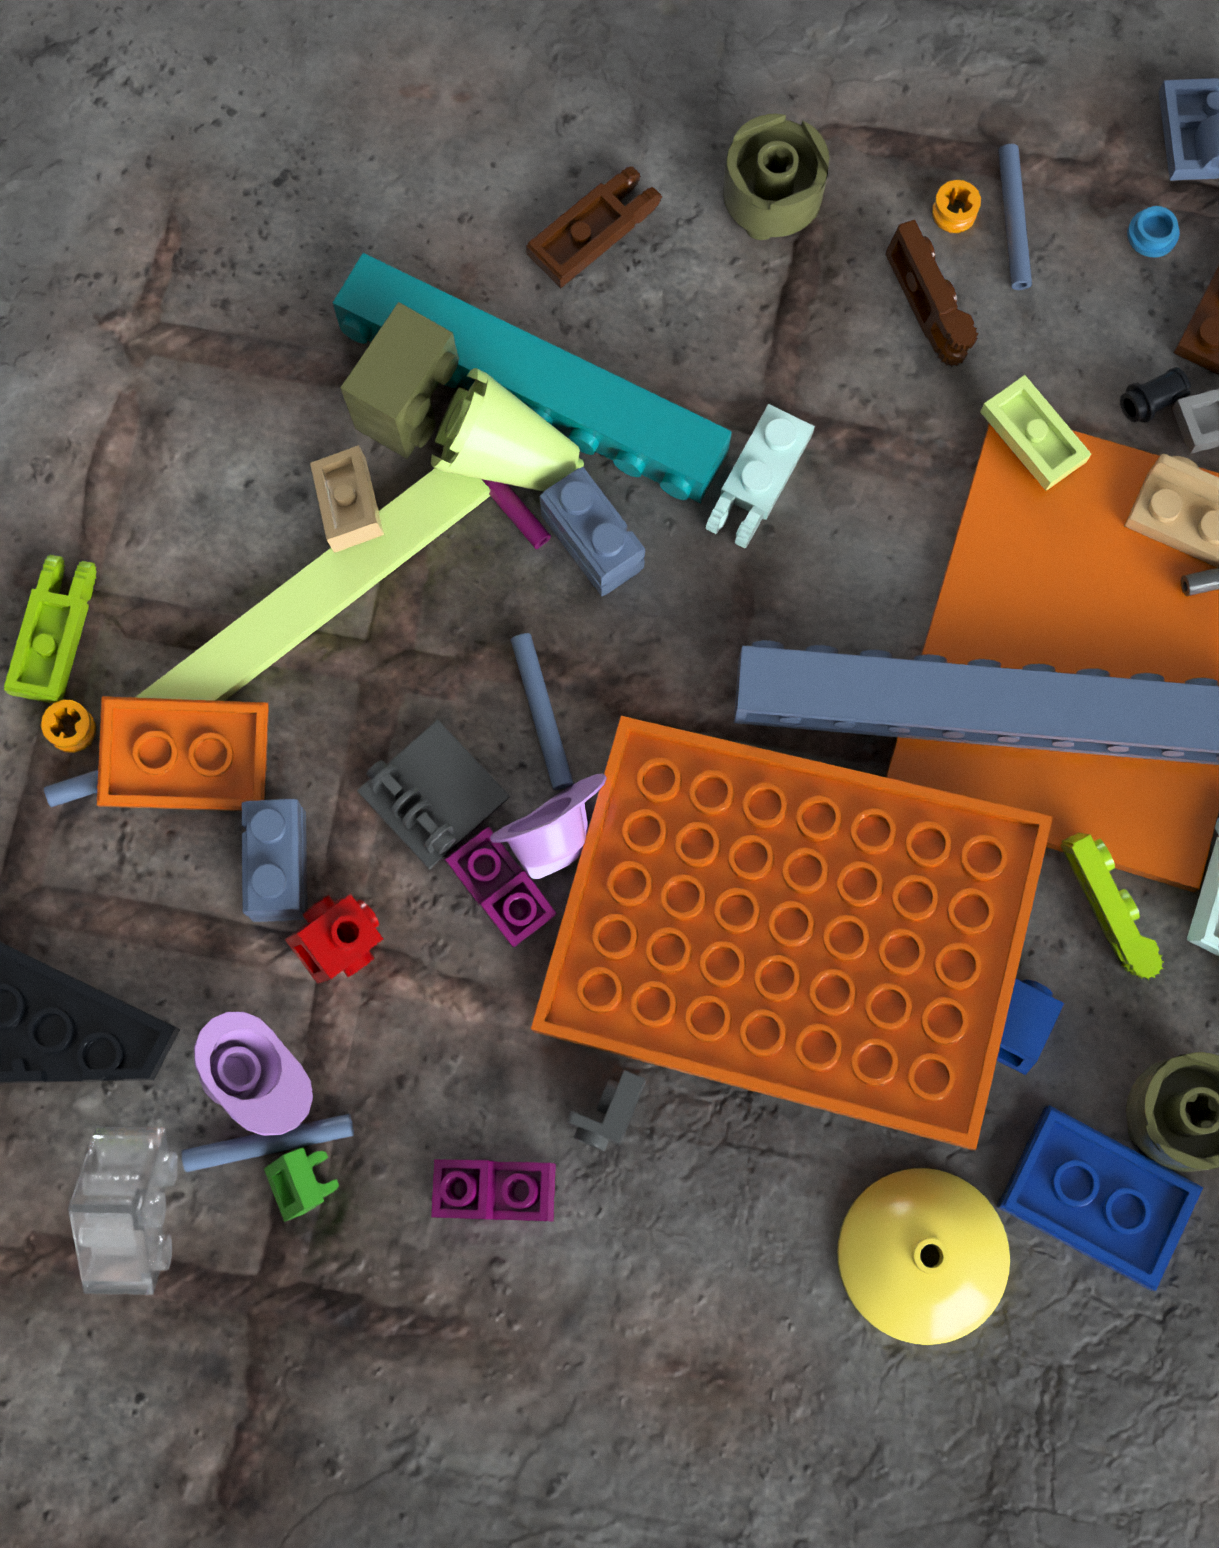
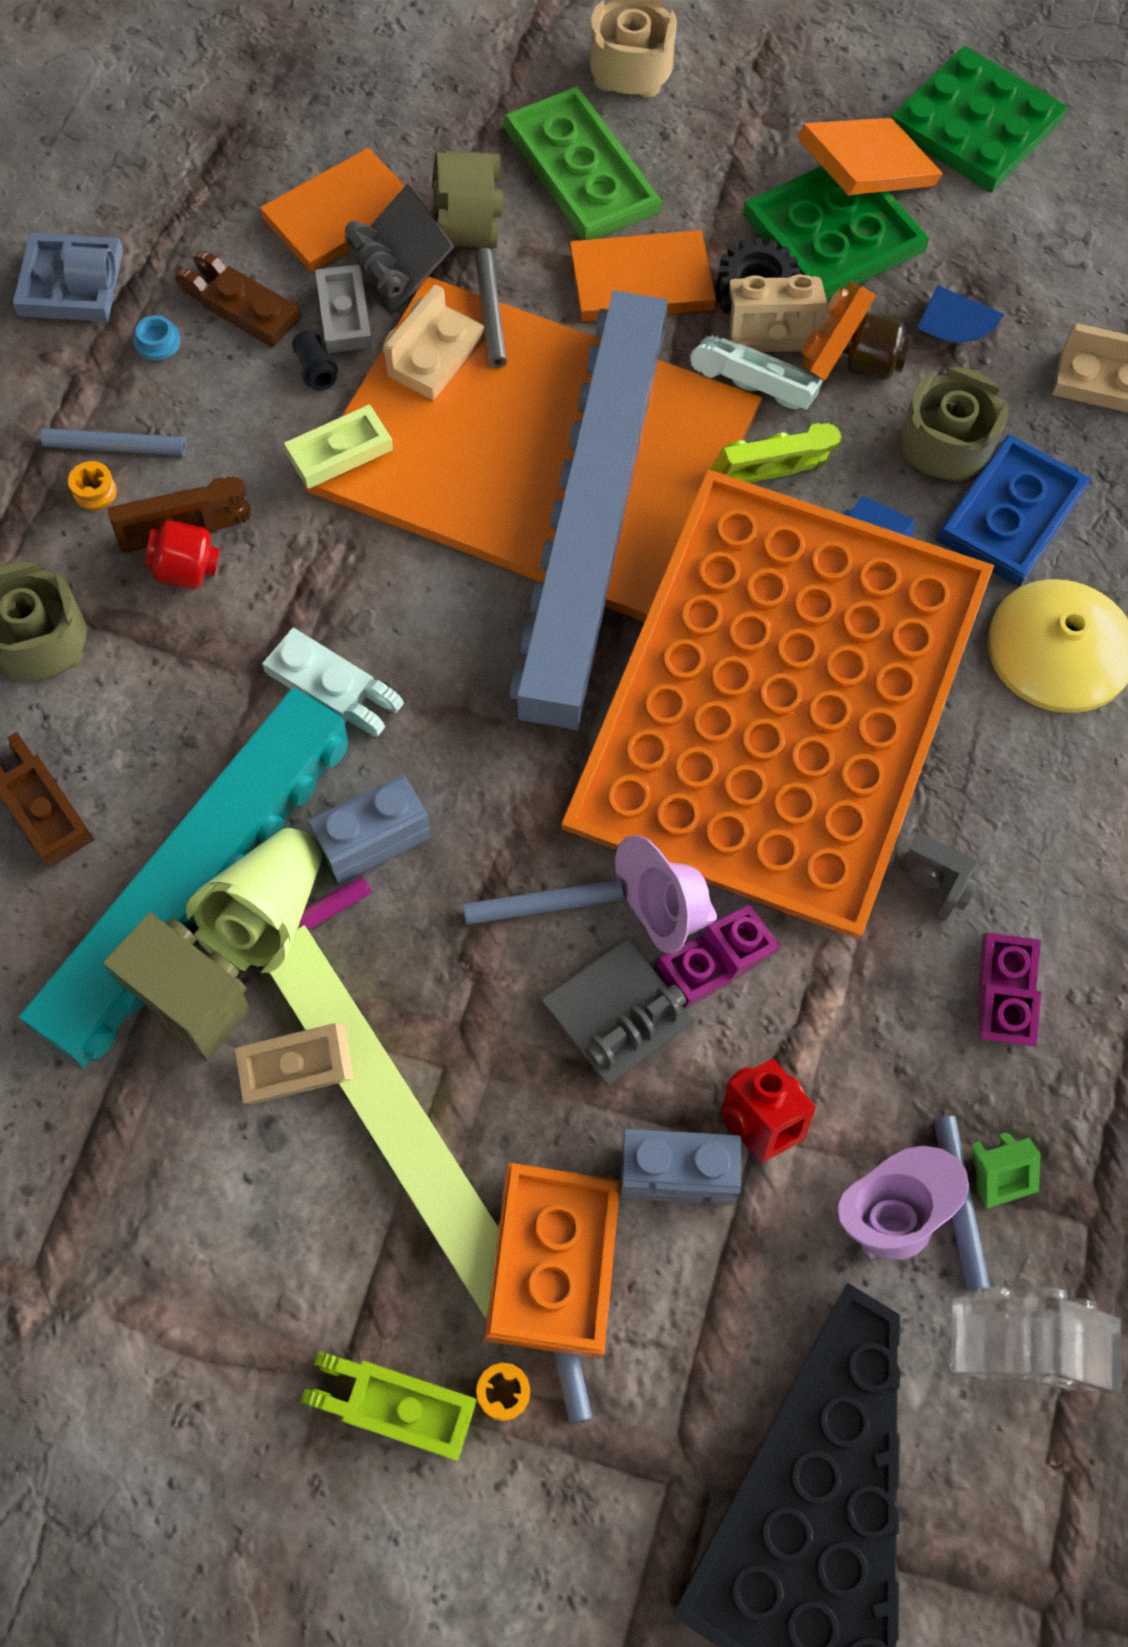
camera: 85 degrees left, 10 degrees down
(880, 303) = (181, 554): none -> red head

